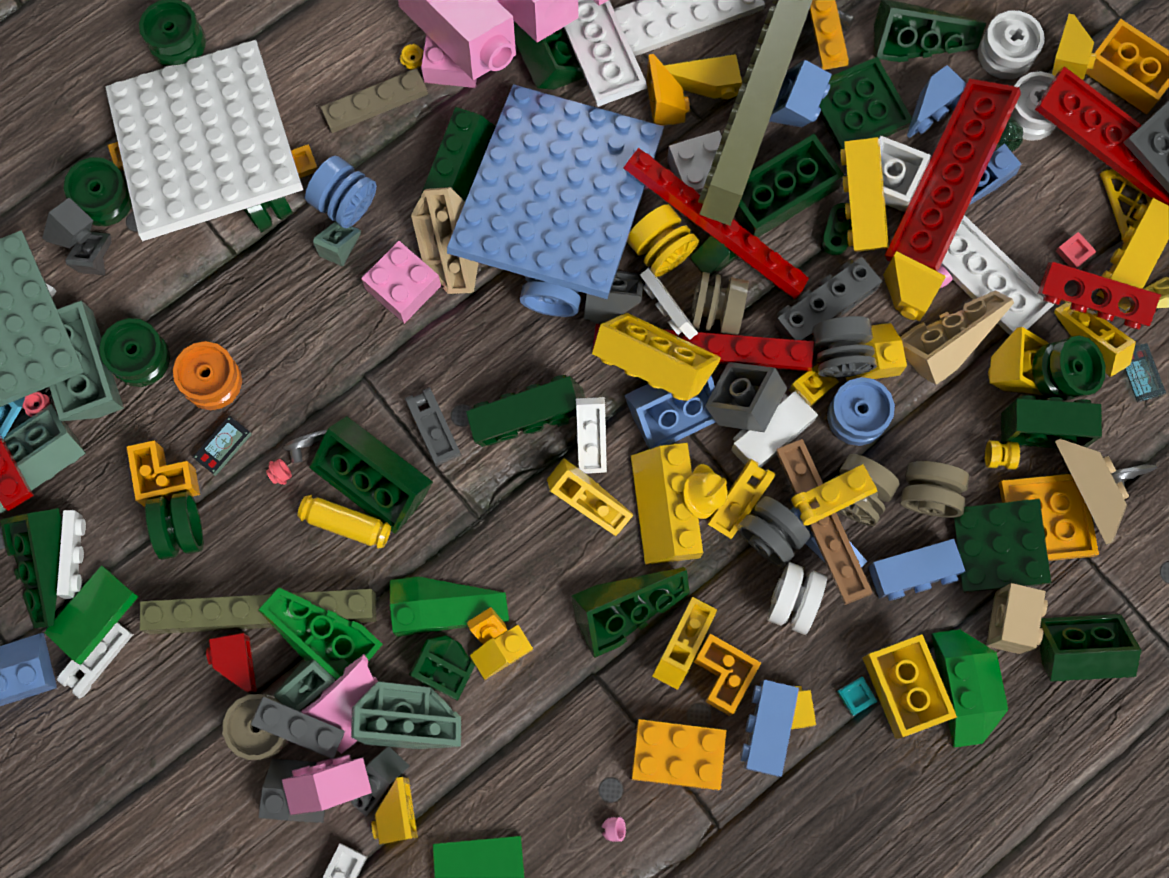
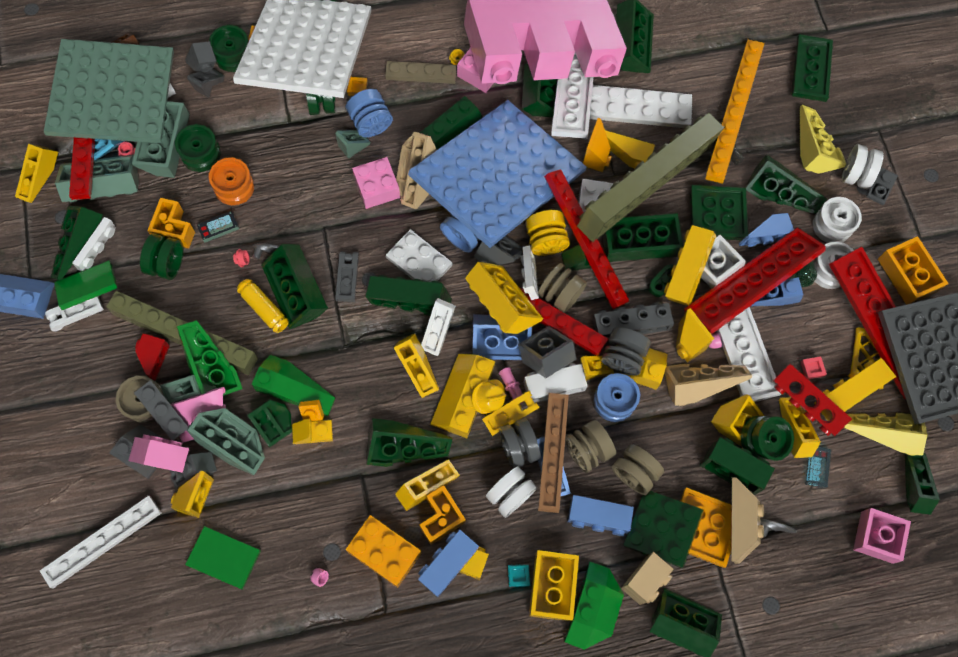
camera: 25 degrees right, 5 degrees down
(512, 356) = (418, 258): none -> white plate
(719, 461) = (510, 383): none -> bright pink axle
(801, 95) = (682, 187): medium blue slope -> none
(834, 495) = (567, 437): yellow plate -> none
(1002, 454) = (699, 474): yellow wheel -> none
(1075, 49) = (875, 240): yellow slope -> none

